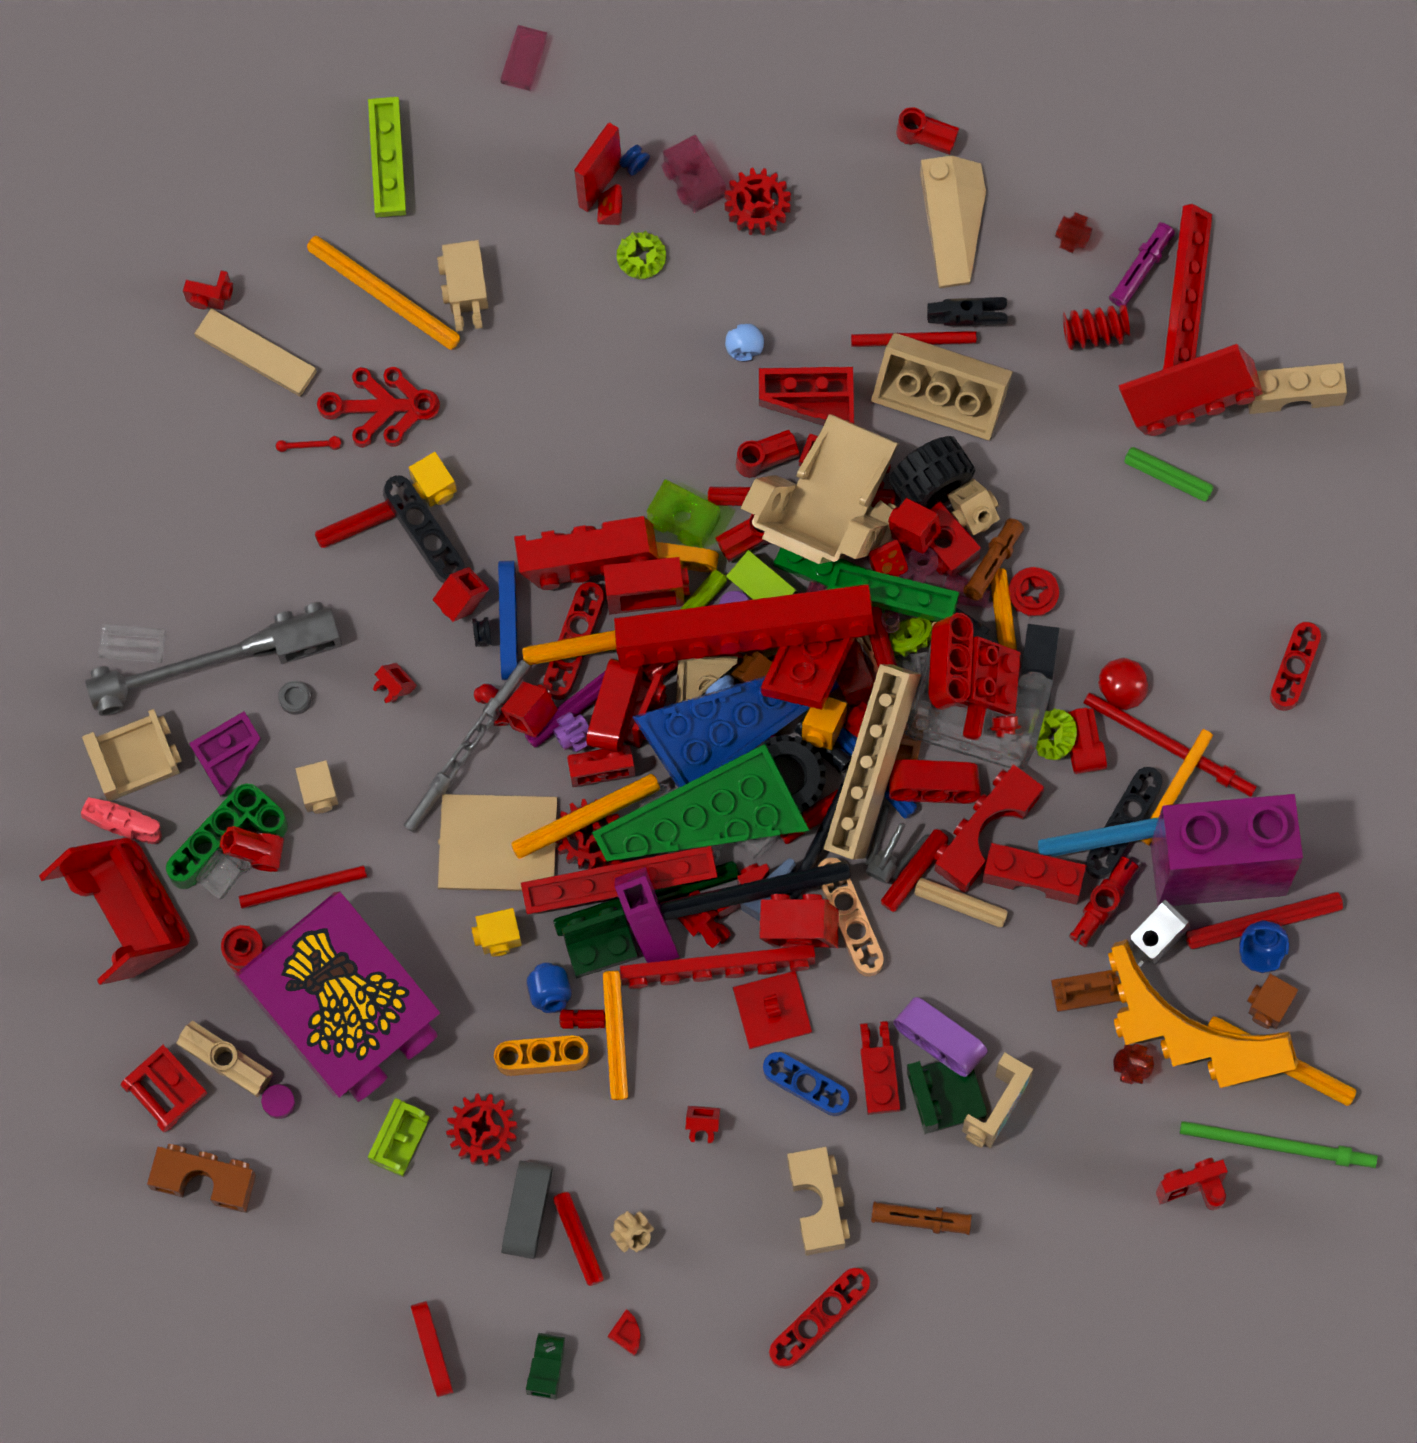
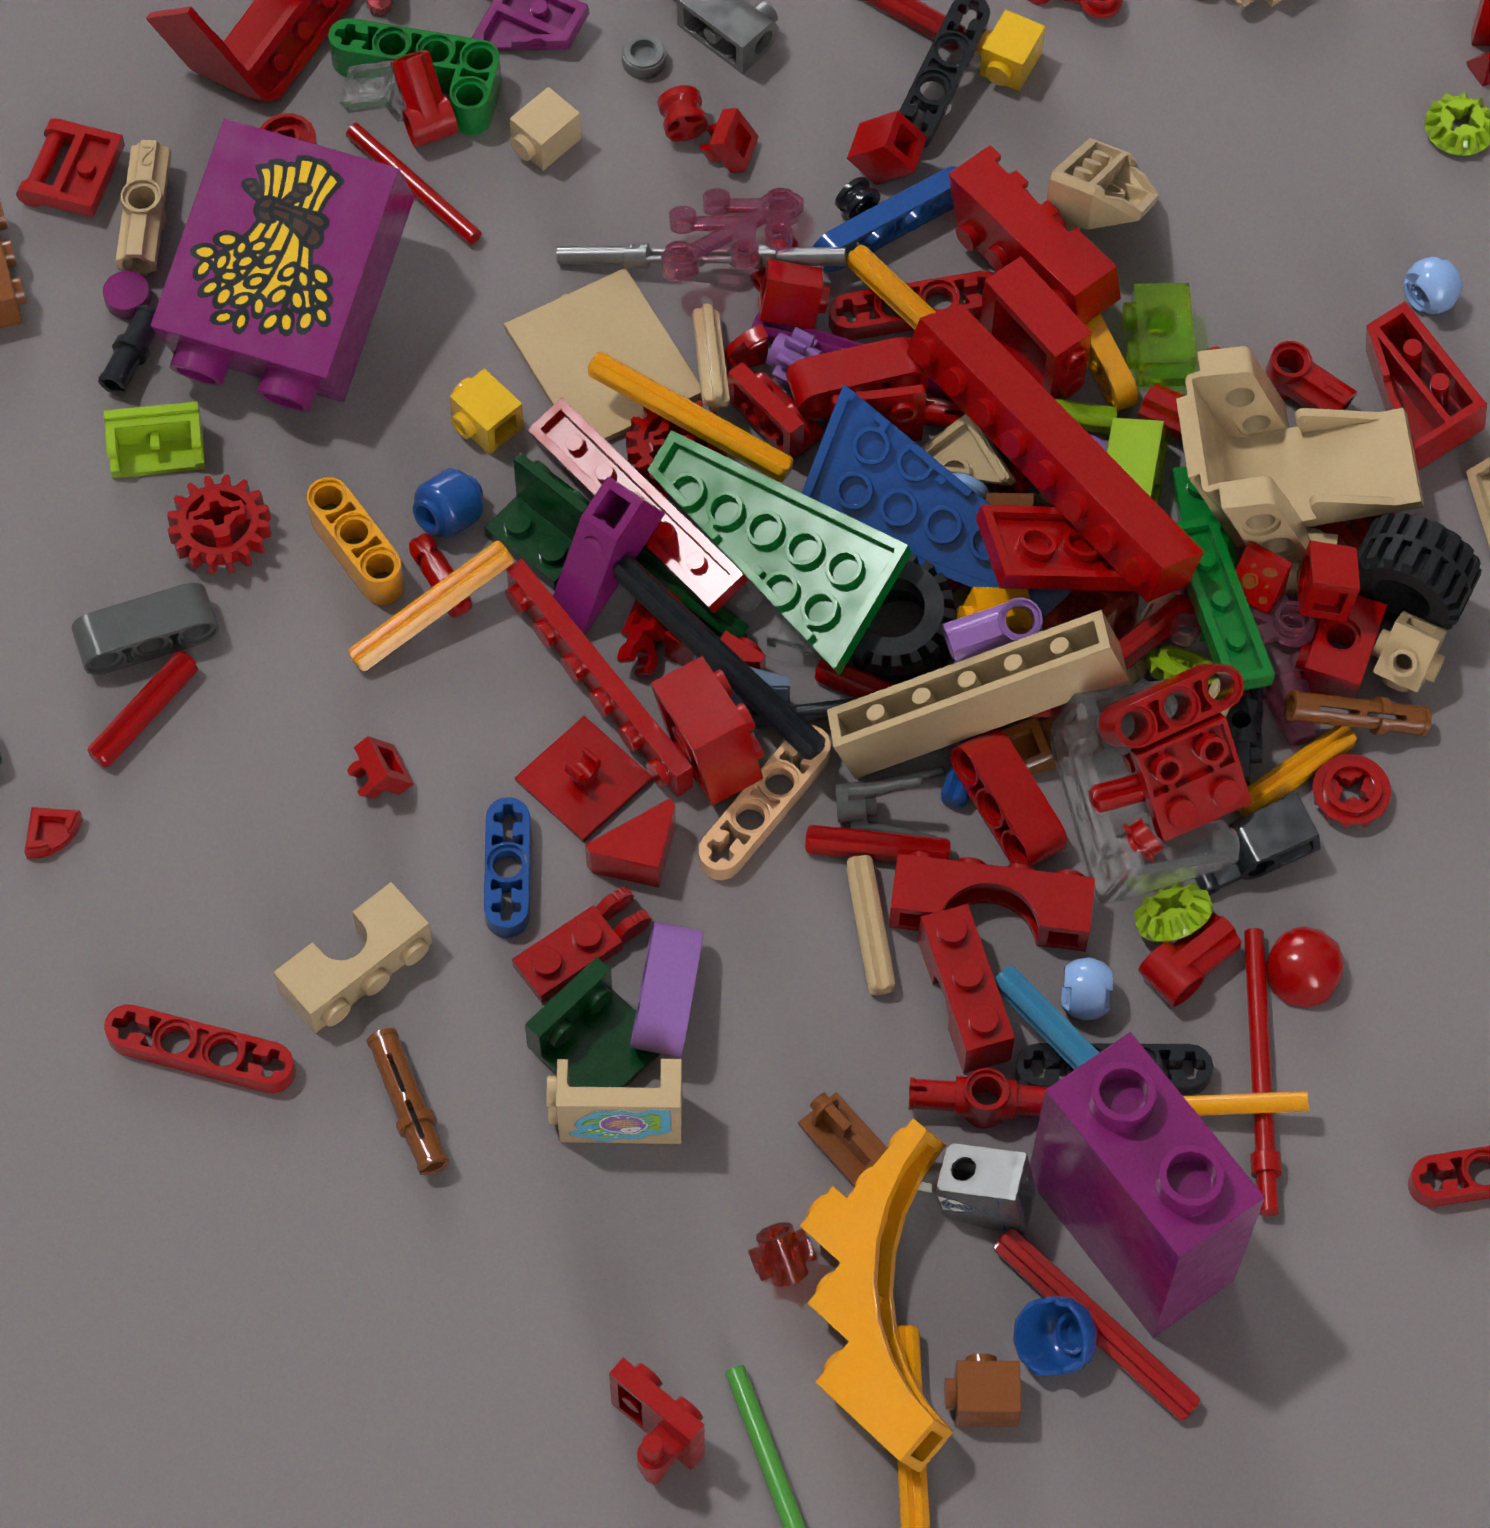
camera: 55 degrees right, 10 degrees down
(323, 1119) = (129, 351): none -> black pin
(356, 698) = (682, 113): none -> red wheel
(462, 716) = (777, 209): none -> clear pink plant
(543, 780) = (710, 357): none -> tan axle
(548, 758) = (748, 348): none -> red tile
(569, 487) = (1100, 187): none -> tan wedge
(632, 1231) = (183, 760): tan gear -> none
(842, 731) = (988, 629): none -> medium lavender piece
(842, 1003) = (636, 848): none -> red slope
(1071, 808) = (1087, 988): none -> light blue piece

